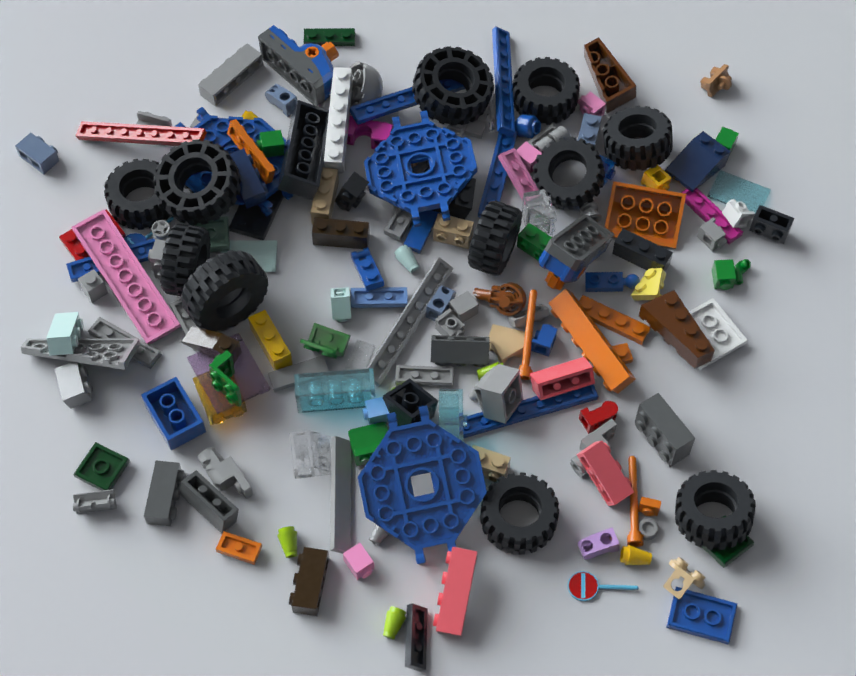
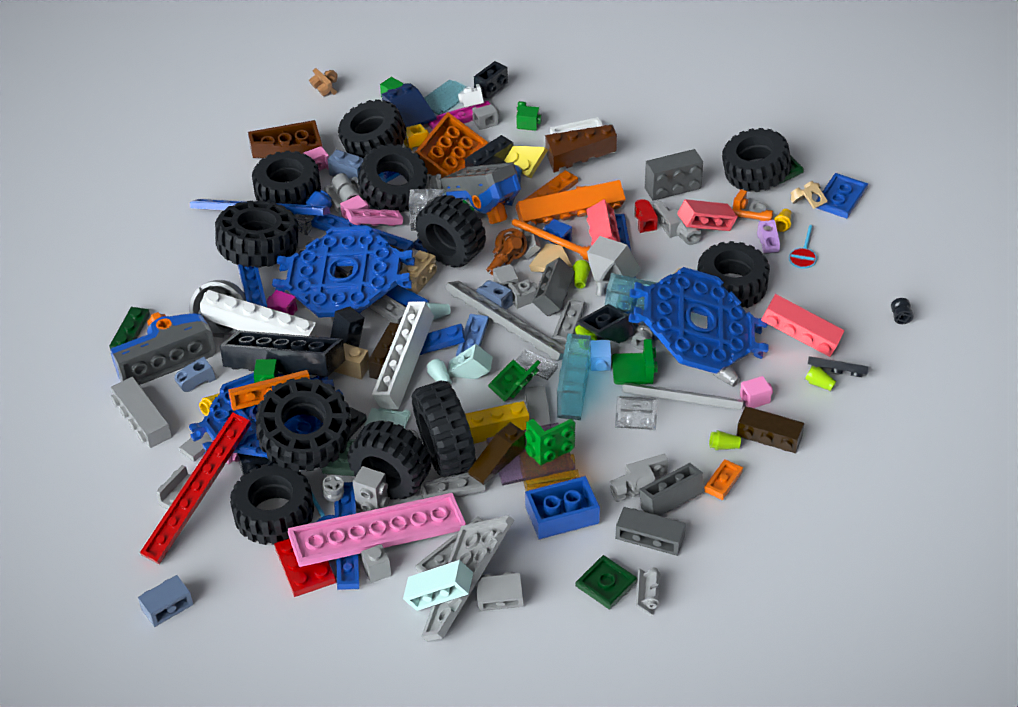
camera: 75 degrees left, 15 degrees down
(325, 281) = (438, 371): none -> light aqua cone
(329, 243) = (403, 355): none -> white brick

